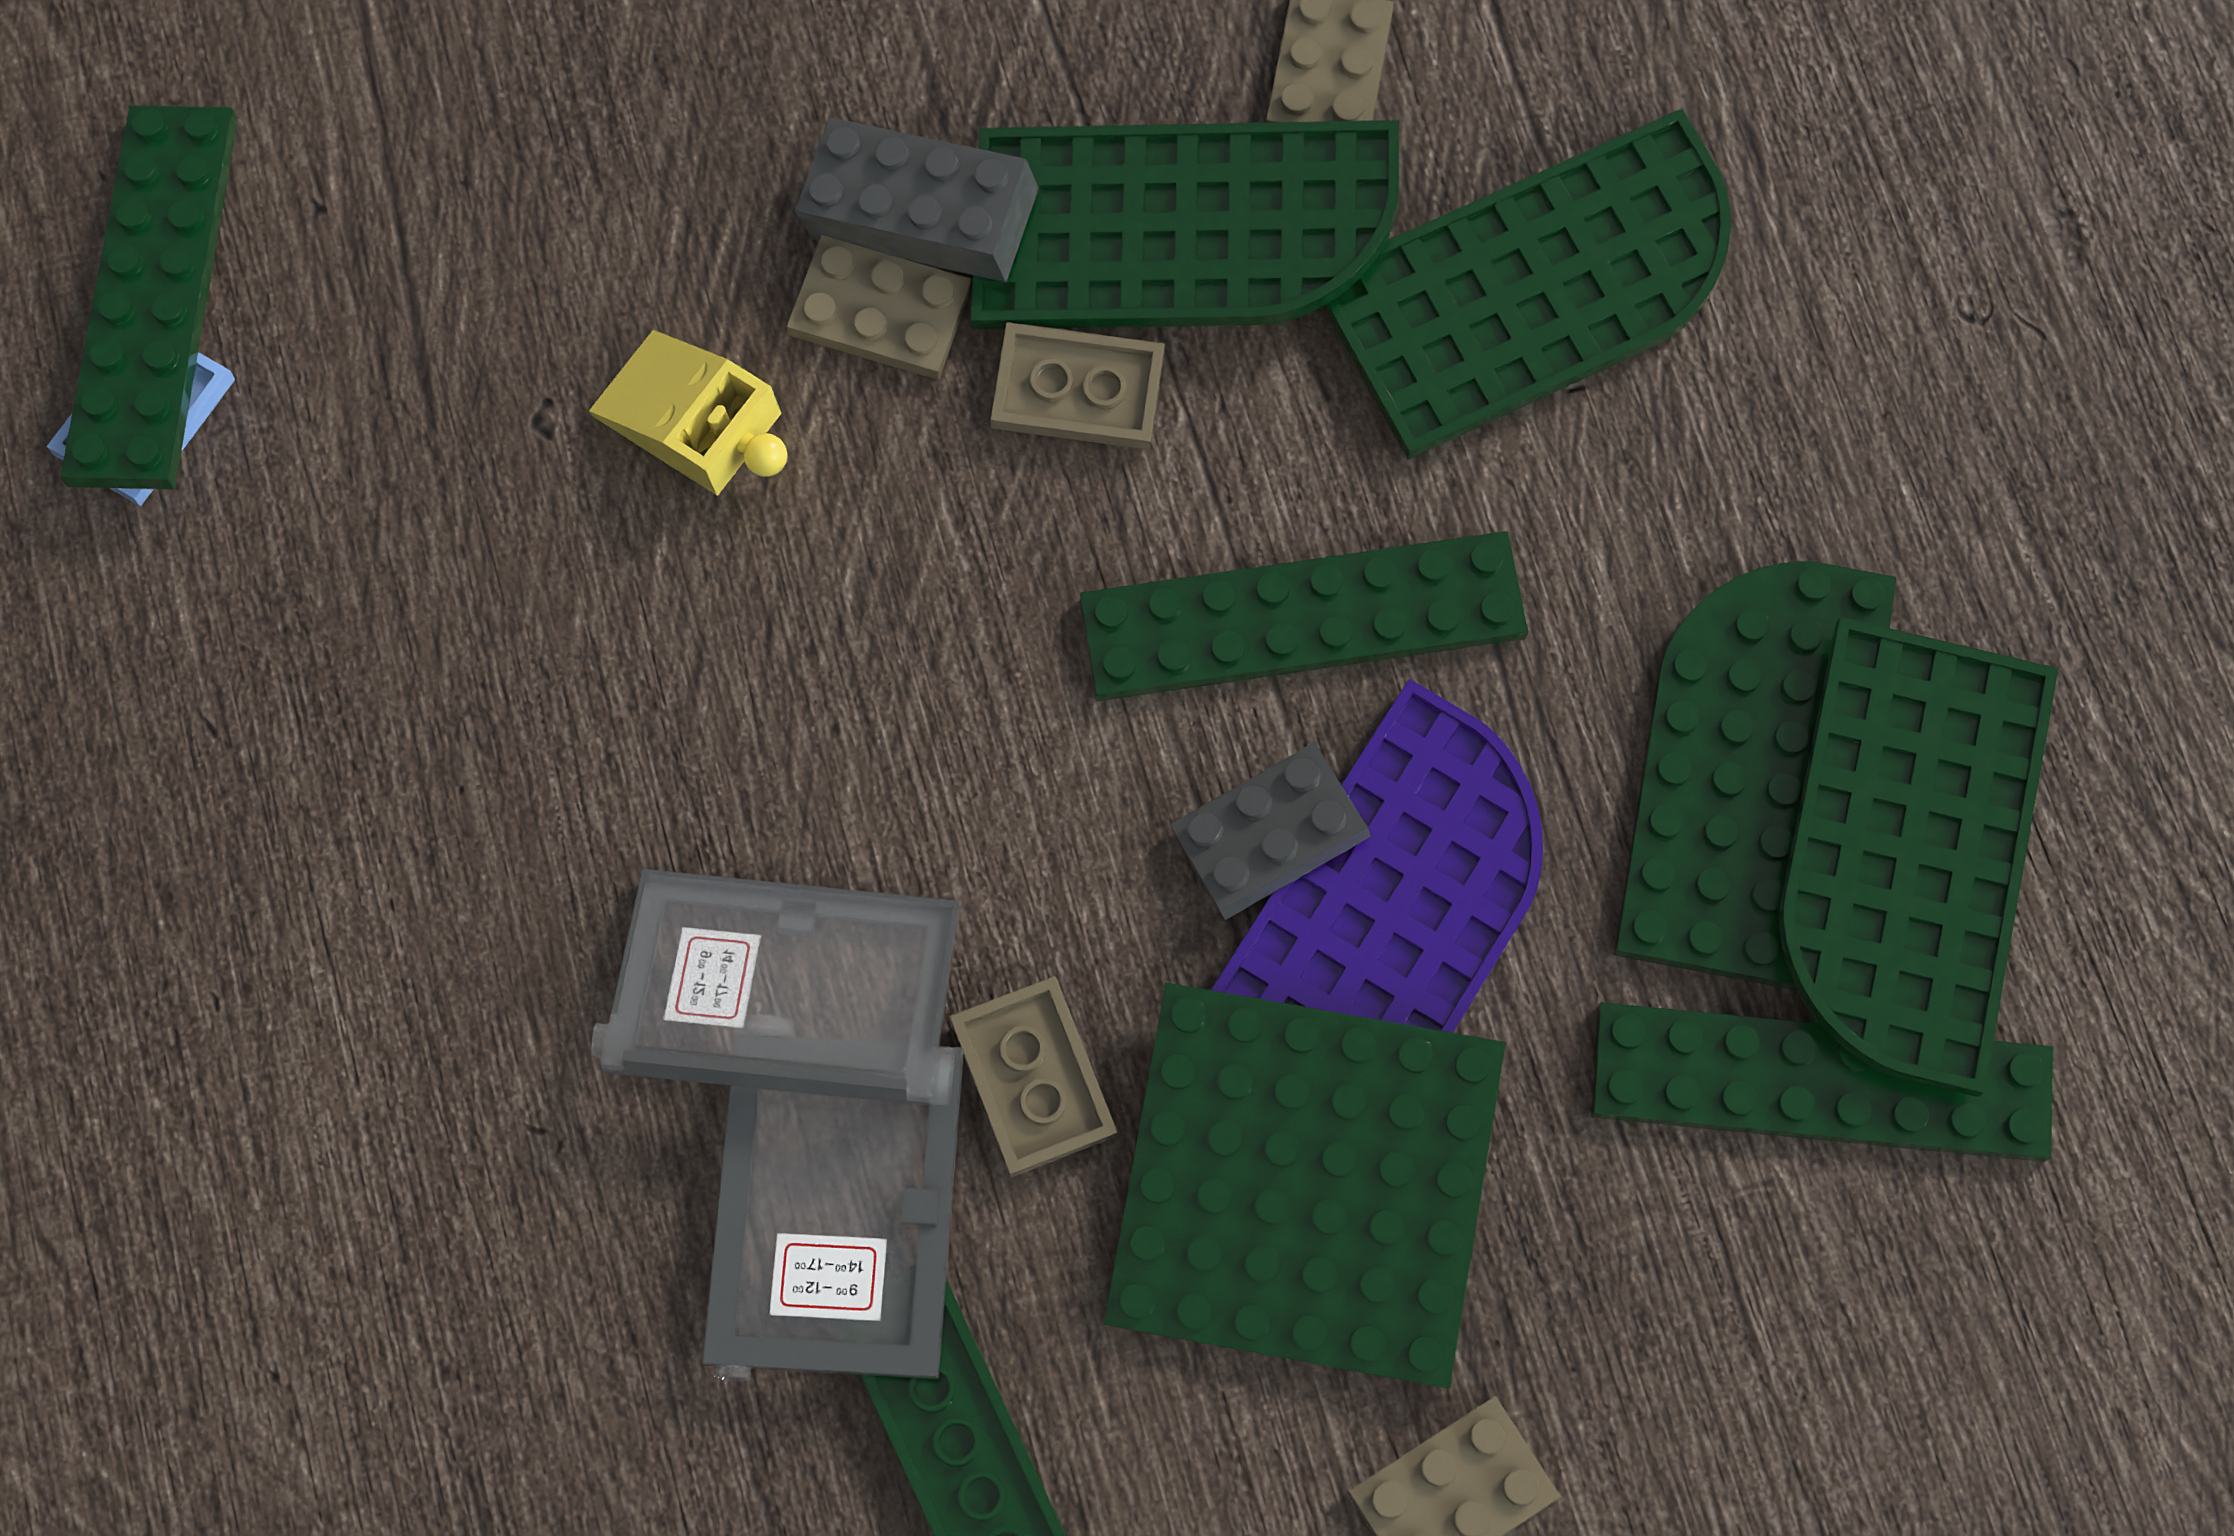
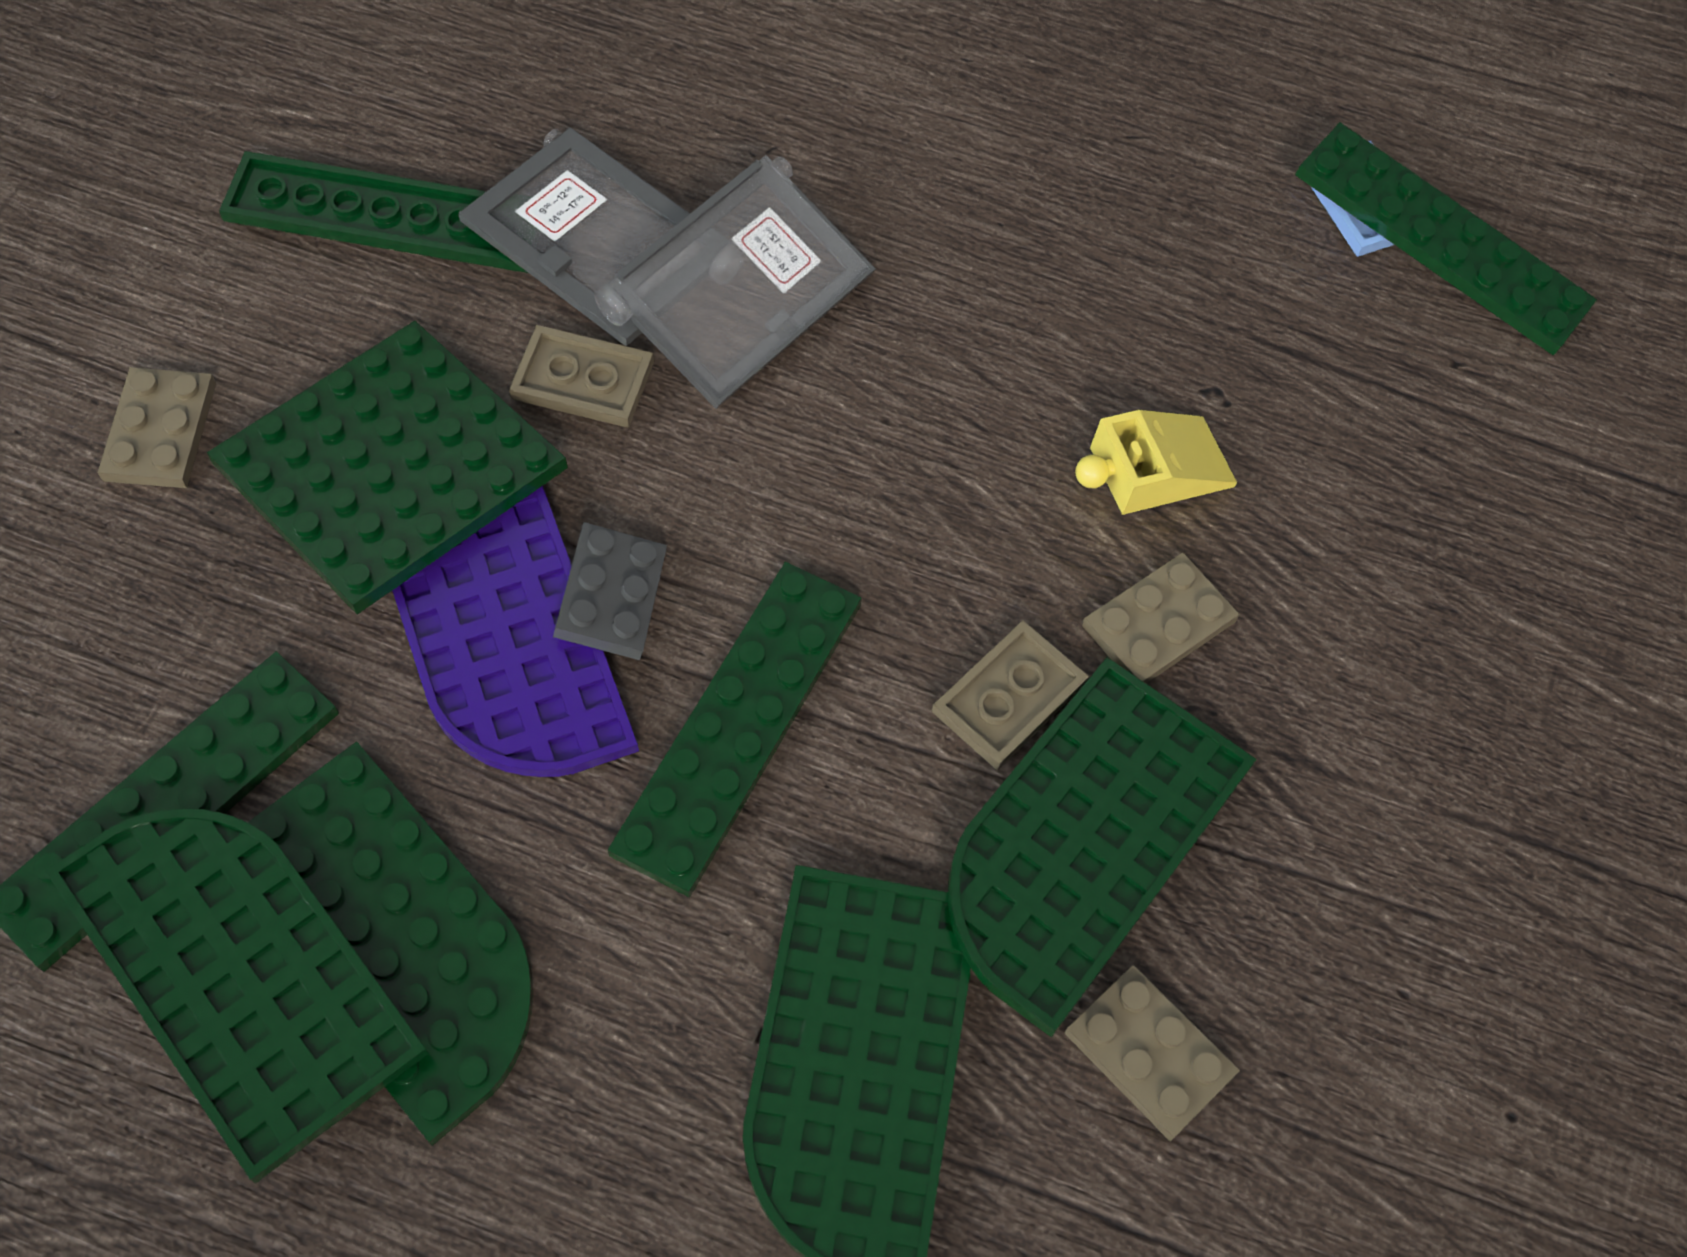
camera: 125 degrees right, 10 degrees down
(918, 198) = (1219, 672): dark grey brick -> none

